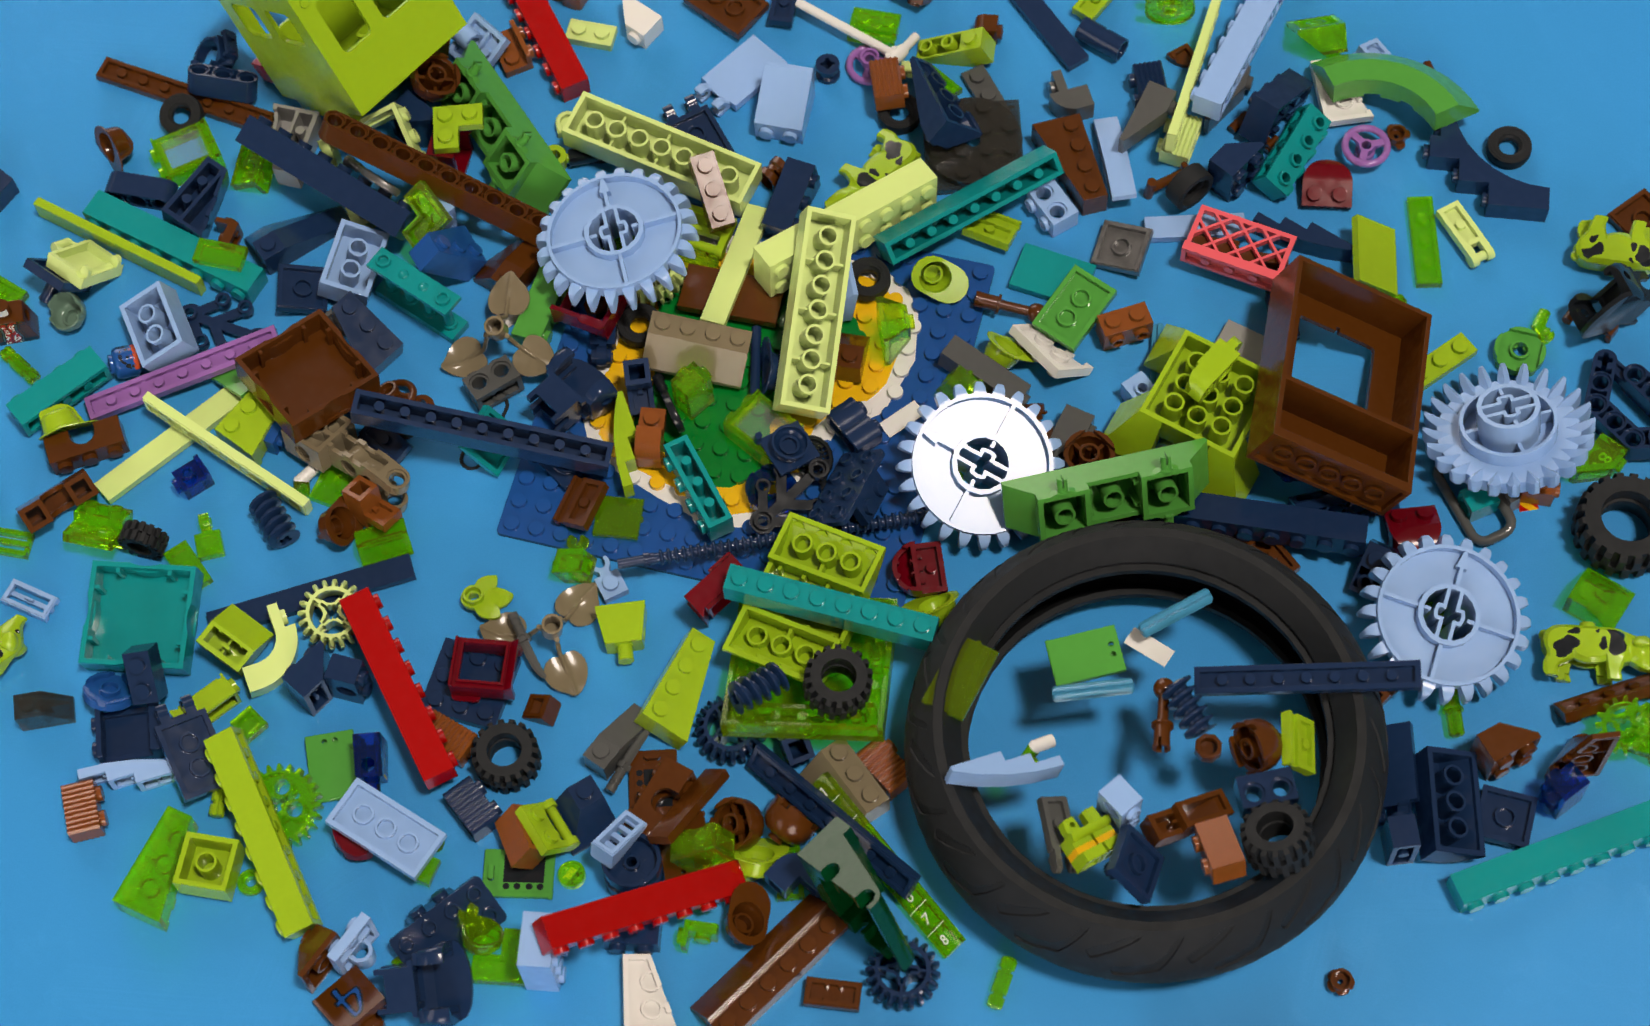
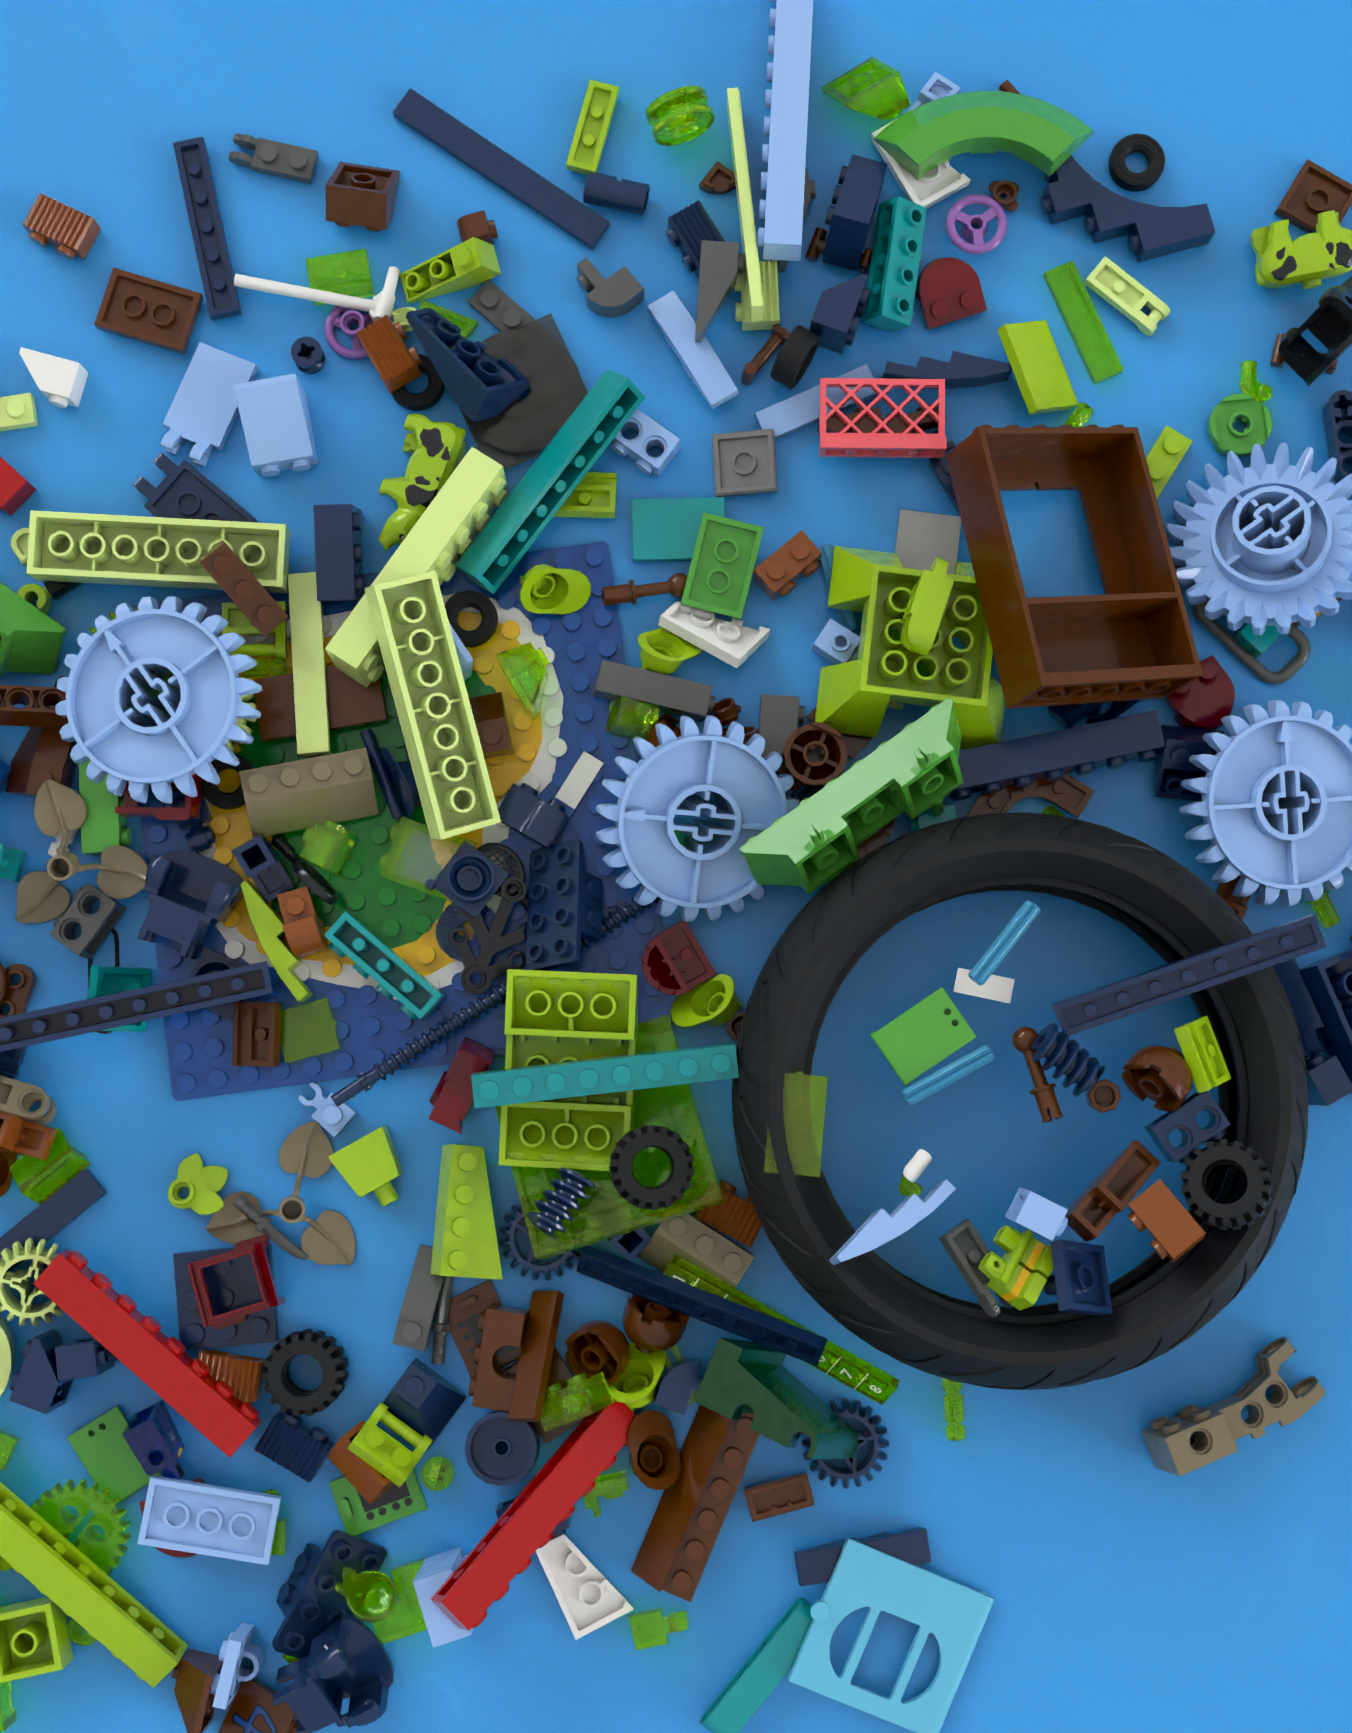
camera: 25 degrees left, 20 degrees up
(542, 709) = (319, 1294): reddish brown slope -> none
(574, 563) = (281, 1110): clear neon green brick -> none
(609, 853) = (461, 1442): light blue slope -> none
(772, 172) = (301, 519): reddish brown wheel -> none
(1077, 159) = (634, 353): reddish brown wedge -> none
(1345, 976) = (1318, 1260): reddish brown plate -> none

